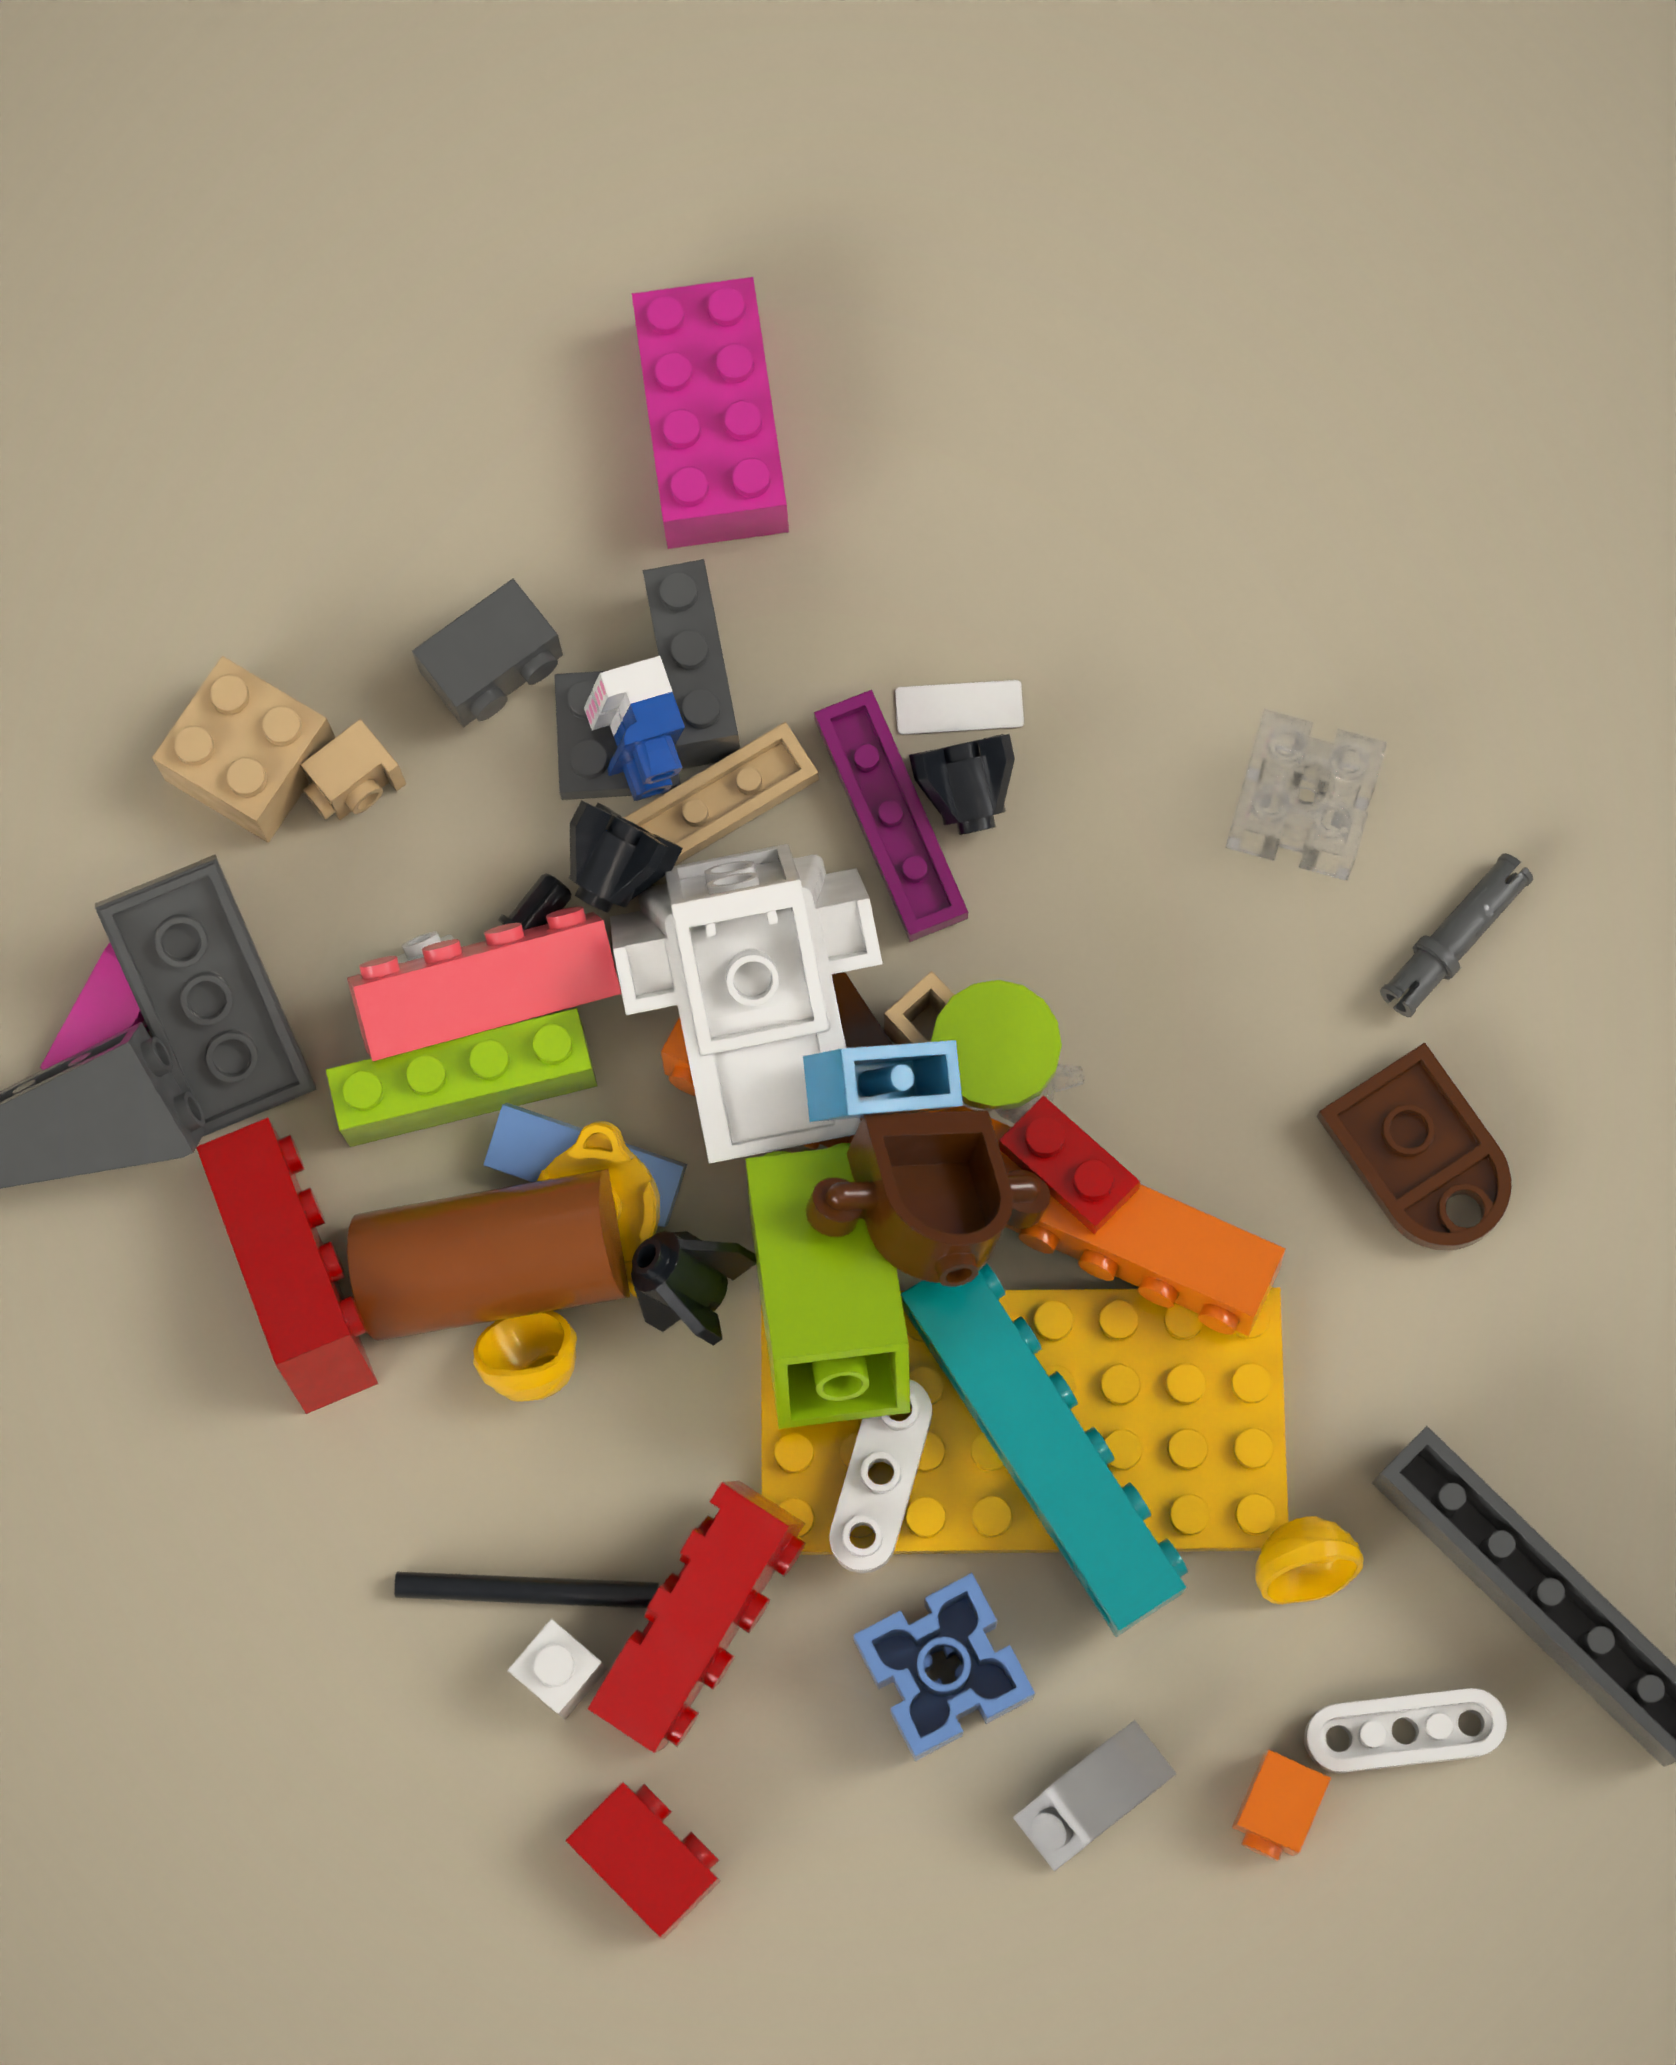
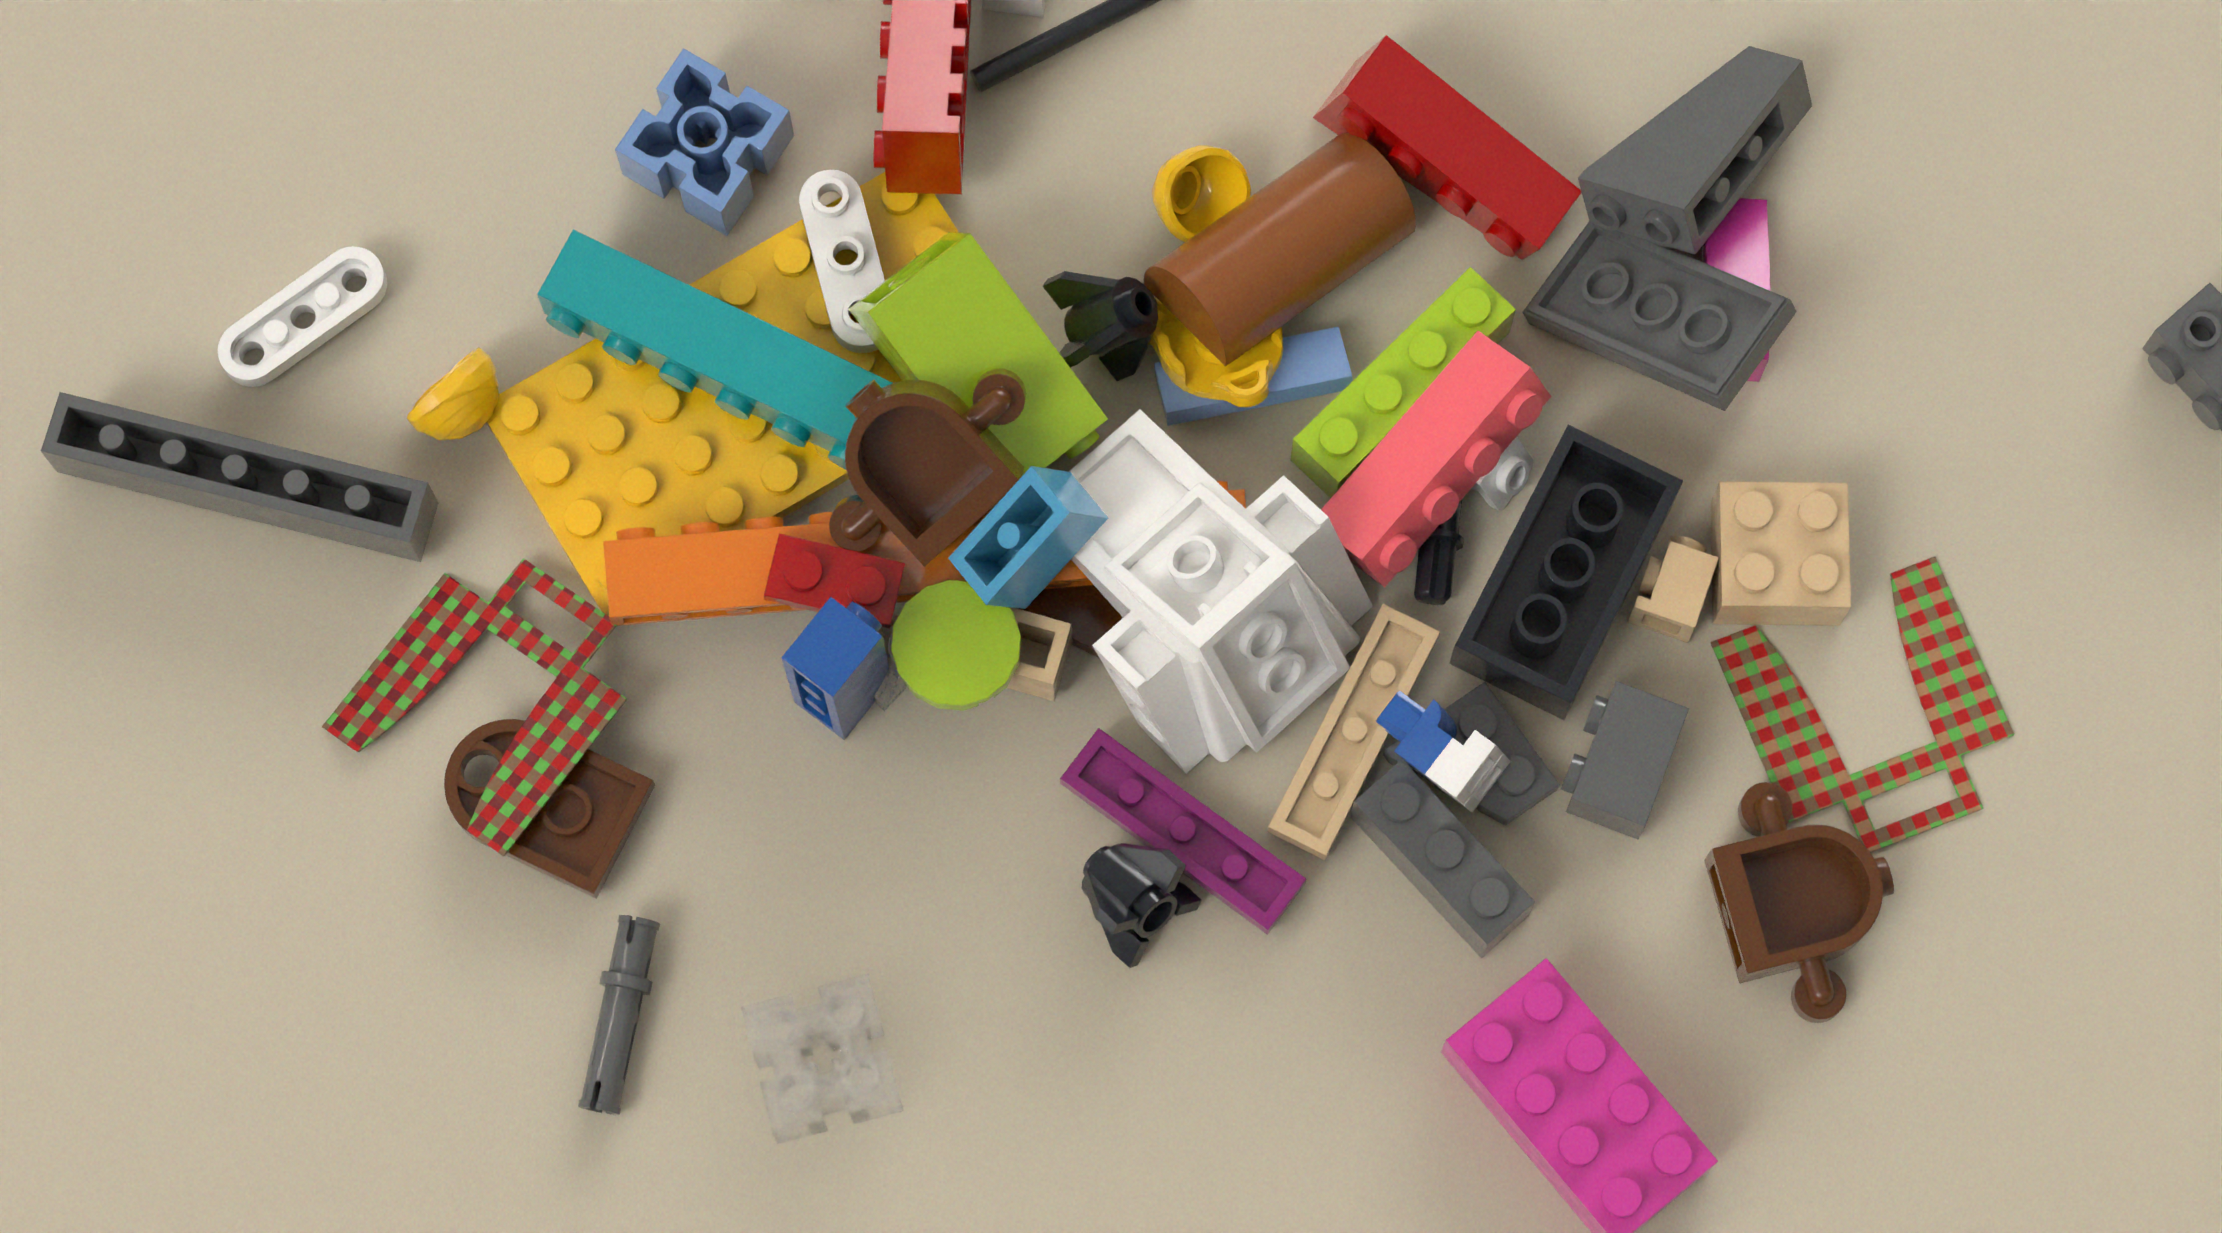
camera: 145 degrees right, 0 degrees up
(183, 569) = (1950, 687): none -> piece
(427, 475) = (1795, 899): none -> reddish brown piece
(433, 831) = (1565, 572): none -> black brick
(615, 857) = (1390, 631): black brick -> none
(959, 707) = (1185, 976): white sticker -> none
(1094, 1795) = (523, 121): light grey brick -> none
(1111, 1084) = (837, 665): none -> blue brick
(1280, 1806) = (373, 199): orange brick -> none
(1443, 1356) = (553, 734): none -> piece

